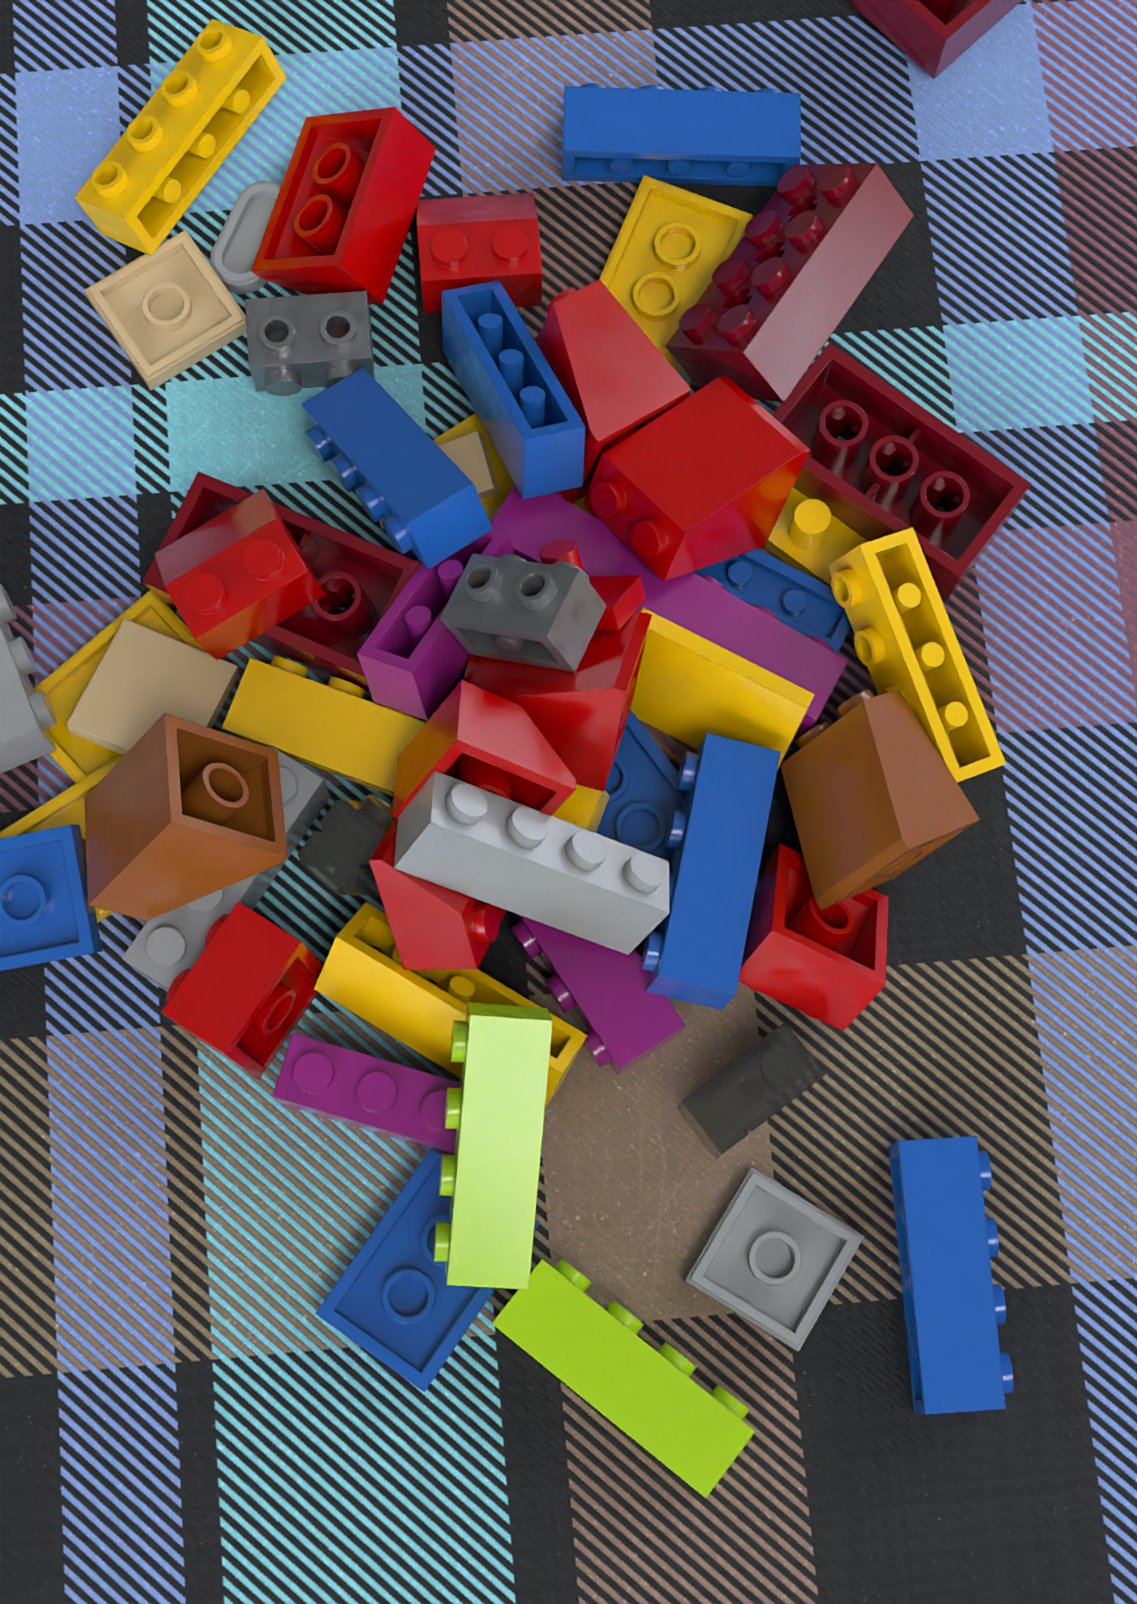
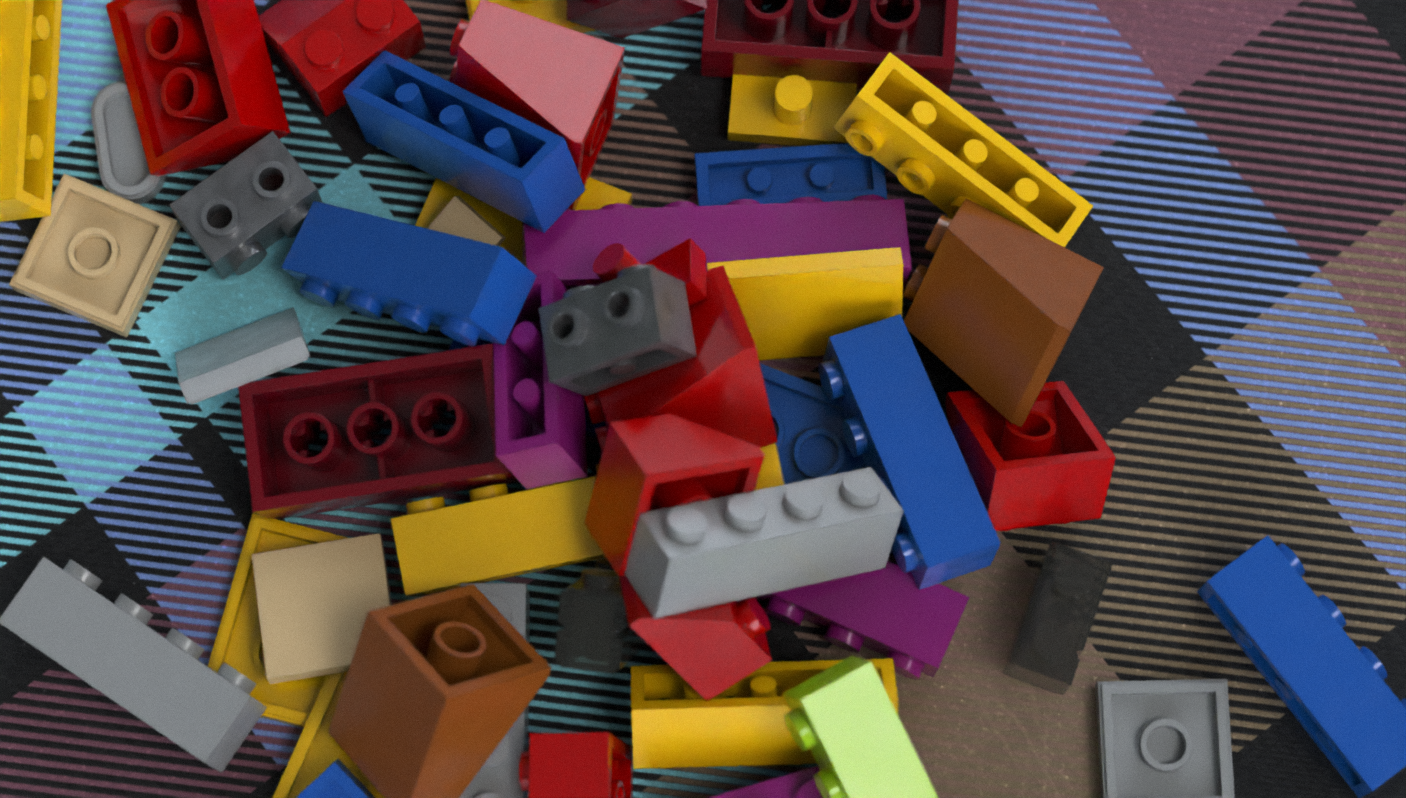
camera: 30 degrees left, 0 degrees up
(220, 454) = (241, 356): none -> light grey tile
(237, 576) = (339, 450): red slope -> none
(698, 481) = (679, 123): red slope -> none

